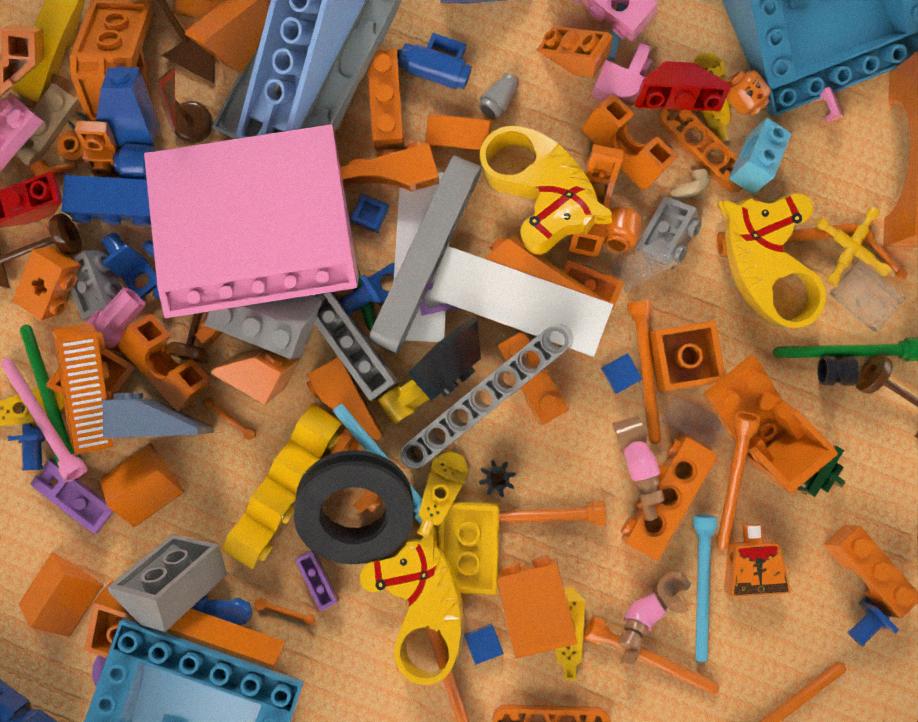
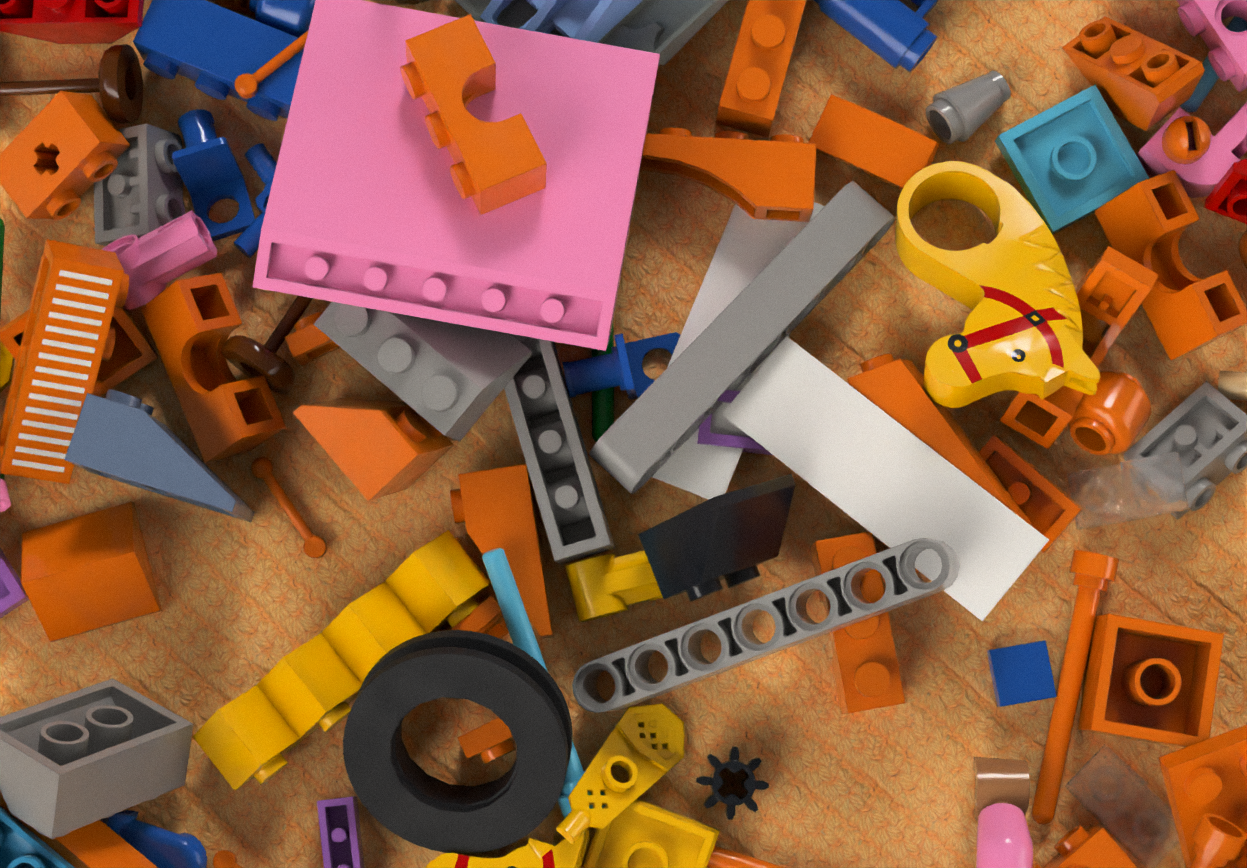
camera: 20 degrees right, 5 degrees down
(128, 212) = (247, 84): none -> orange hinge
(263, 209) = (491, 159): none -> orange arch
(369, 213) = (667, 231): blue tile -> none
(560, 105) = (1071, 159): none -> medium azure plate
(609, 77) = (1176, 142): none -> orange hinge

